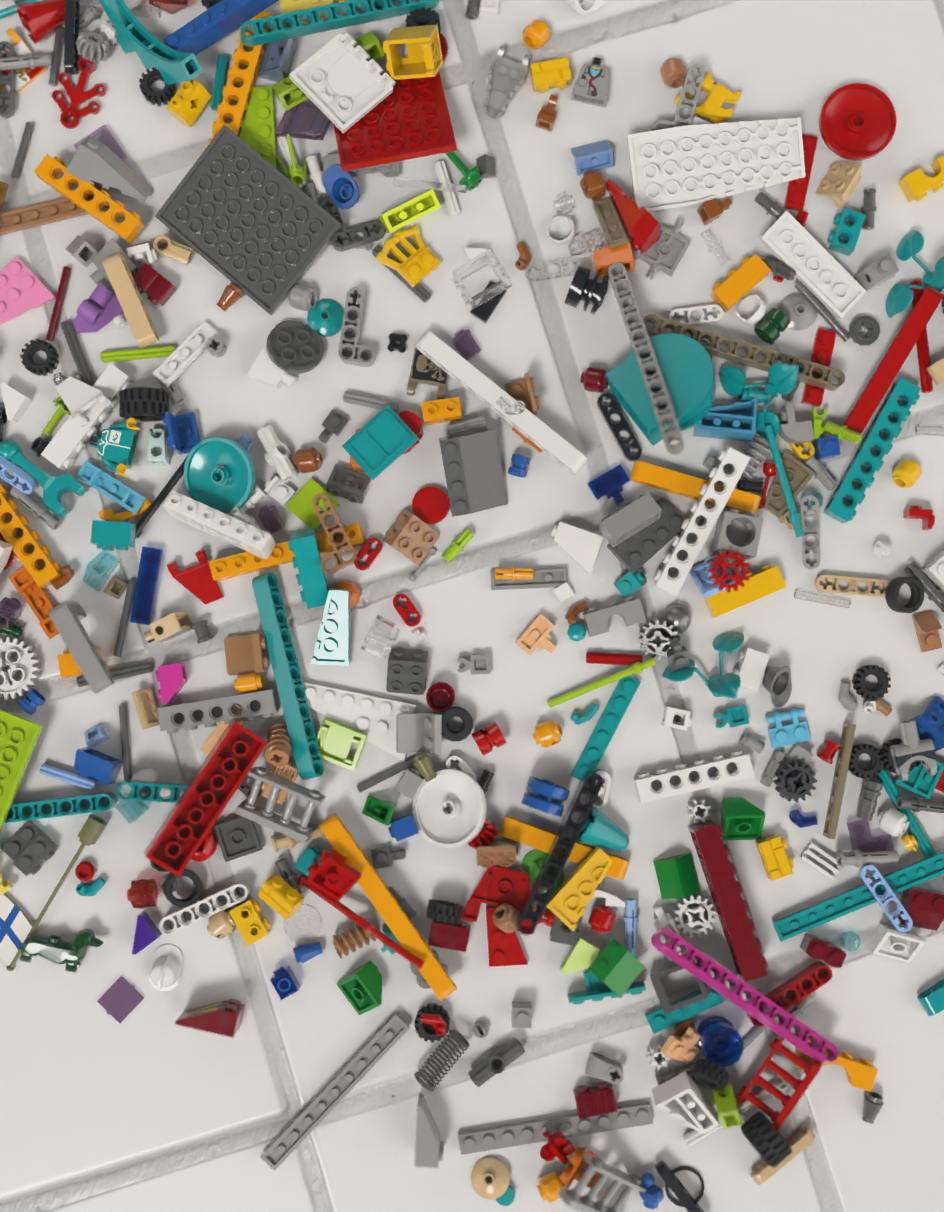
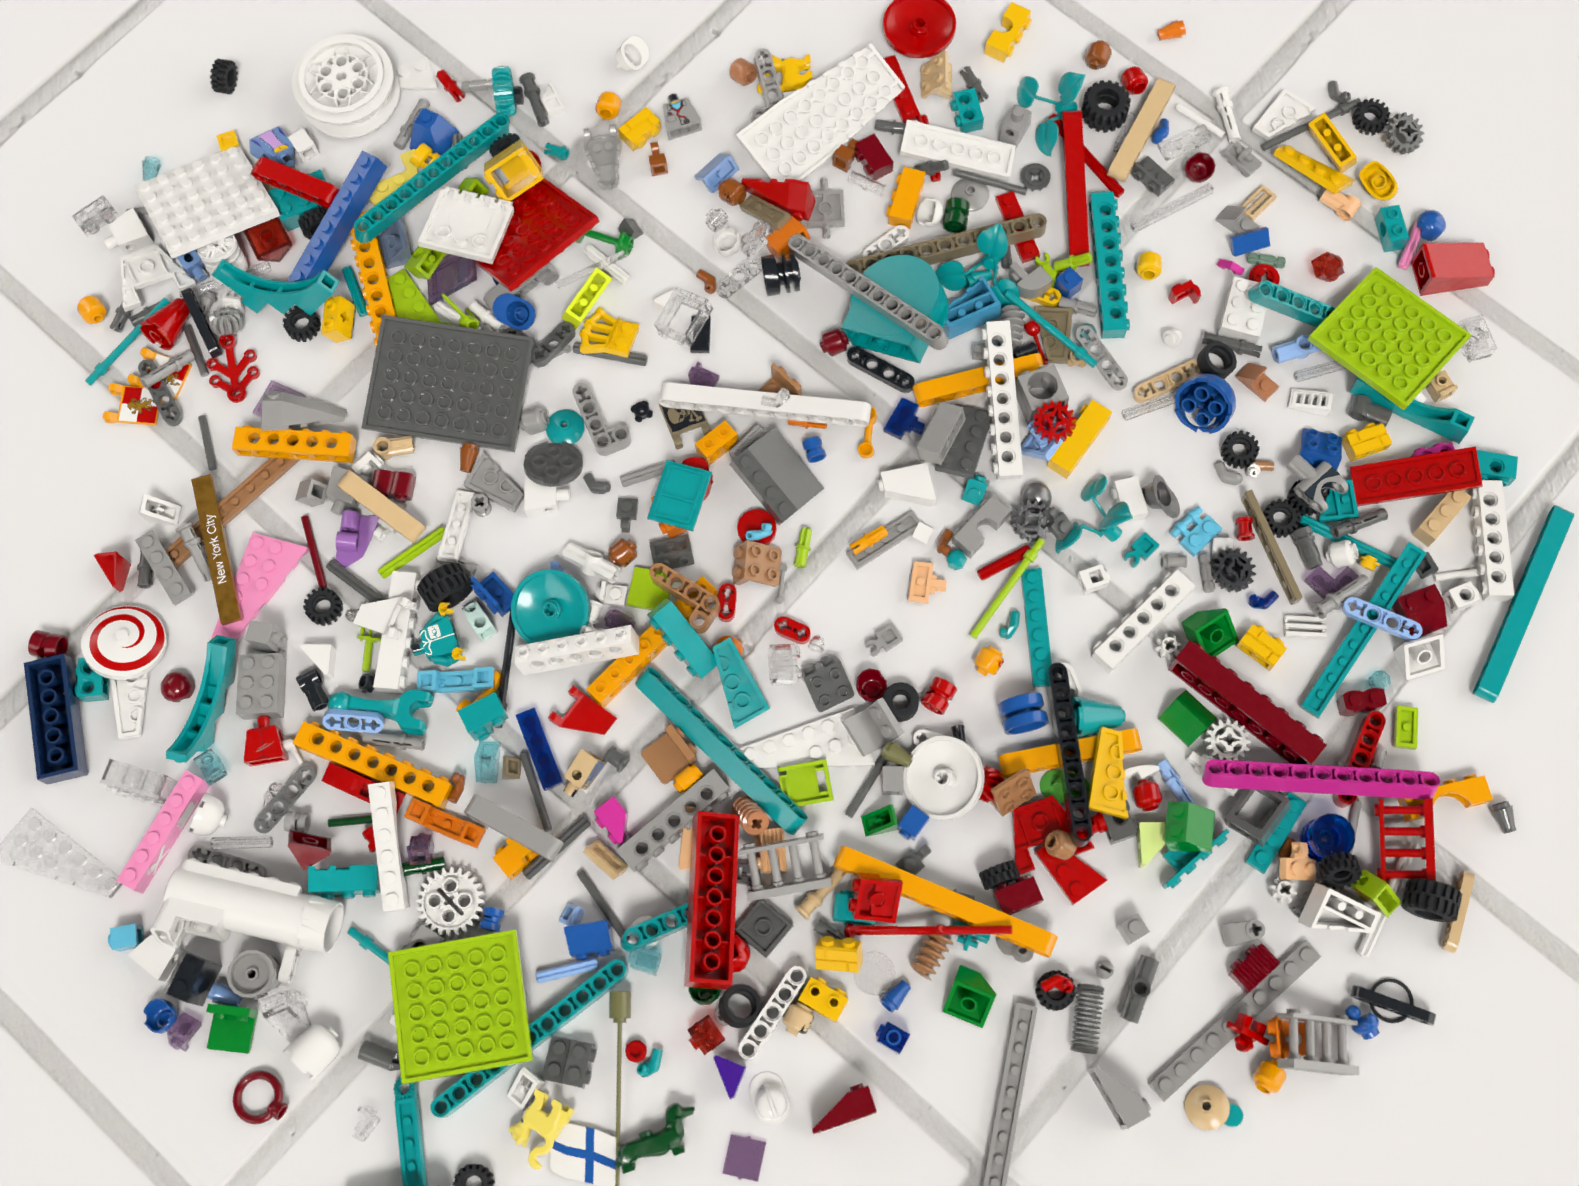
camera: 25 degrees left, 15 degrees down
(237, 334) = (490, 481): none -> light grey wing
(320, 388) = (596, 487): none -> dark grey arm
(434, 513) = (759, 534): none -> medium azure arm
(466, 52) = (556, 151): none -> teal pin
(561, 492) = (866, 448): none -> light orange bar
(736, 226) = (873, 157): none -> dark red brick
(844, 991) = (1406, 727): none -> lime plate
(878, 629) = (1212, 396): none -> blue cylinder

